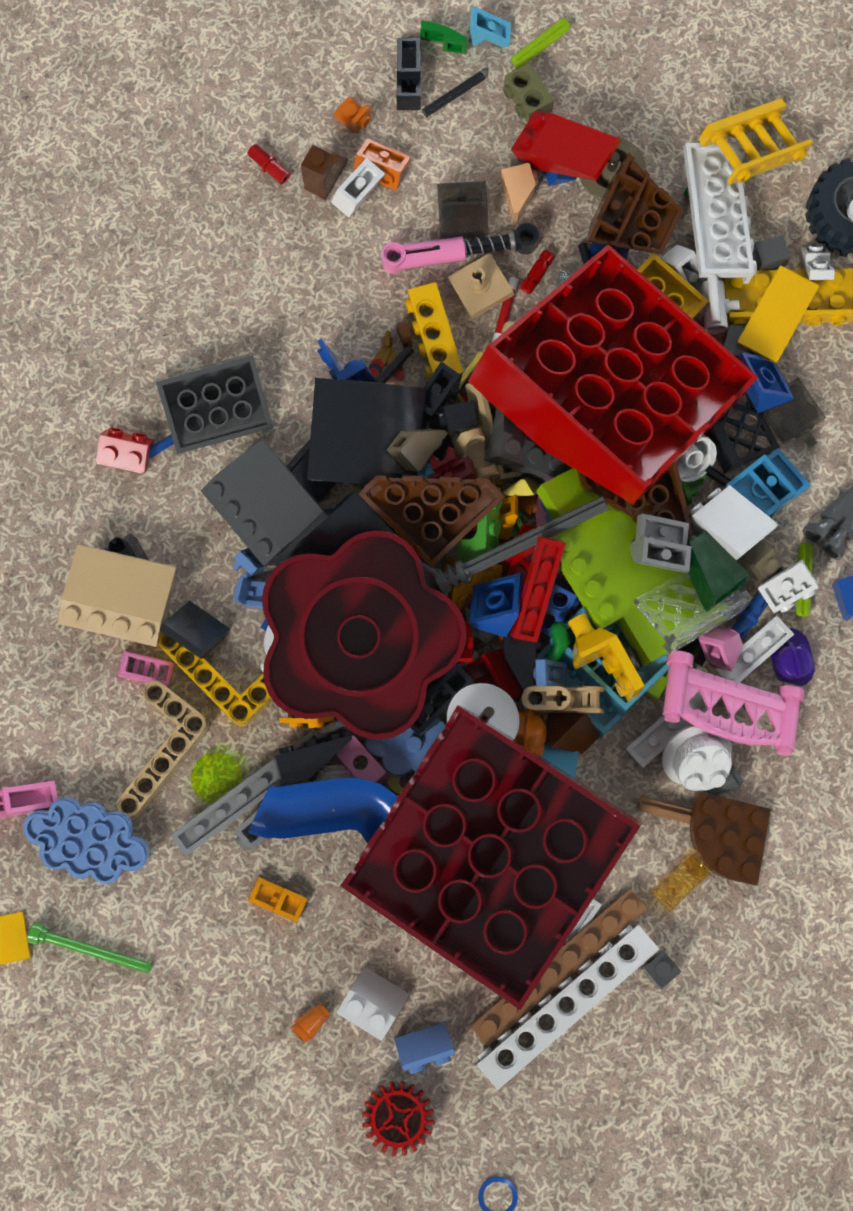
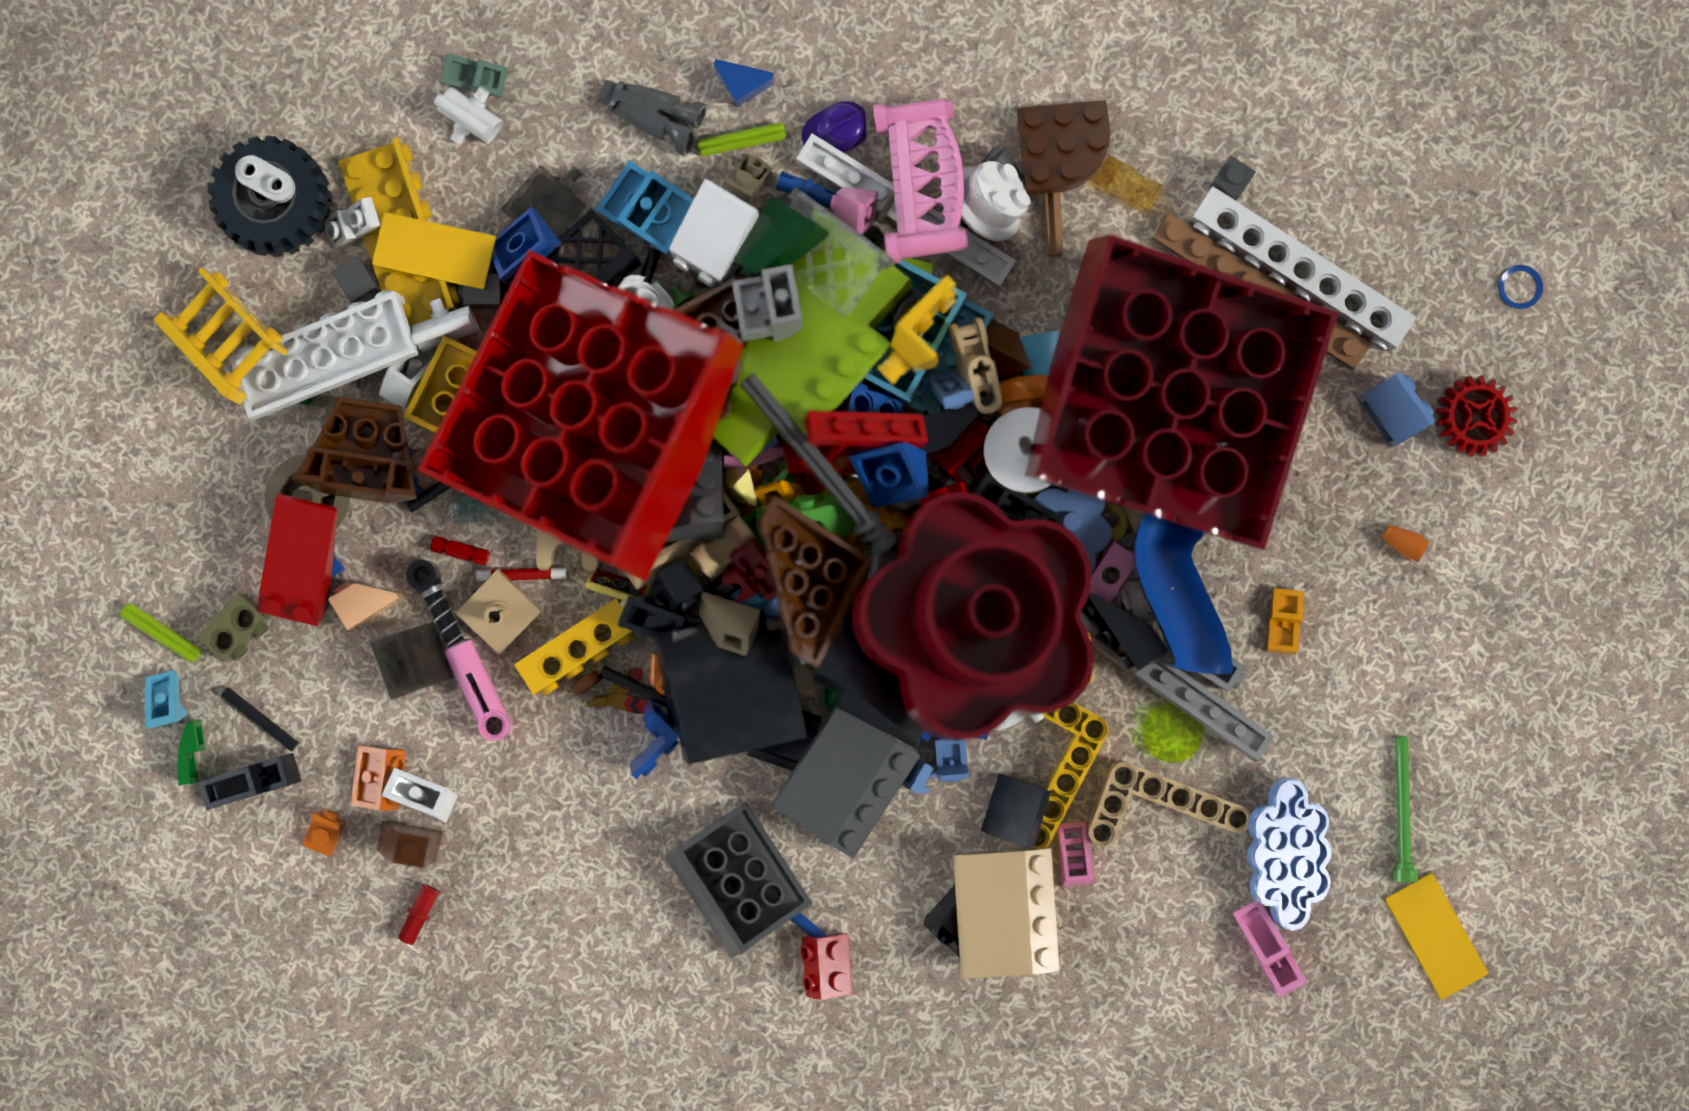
camera: 105 degrees left, 10 degrees up
(373, 1003) = (1366, 480): white slope -> none
(560, 639) = (911, 388): green arm -> none
(788, 587) = (762, 152): white bracket -> none

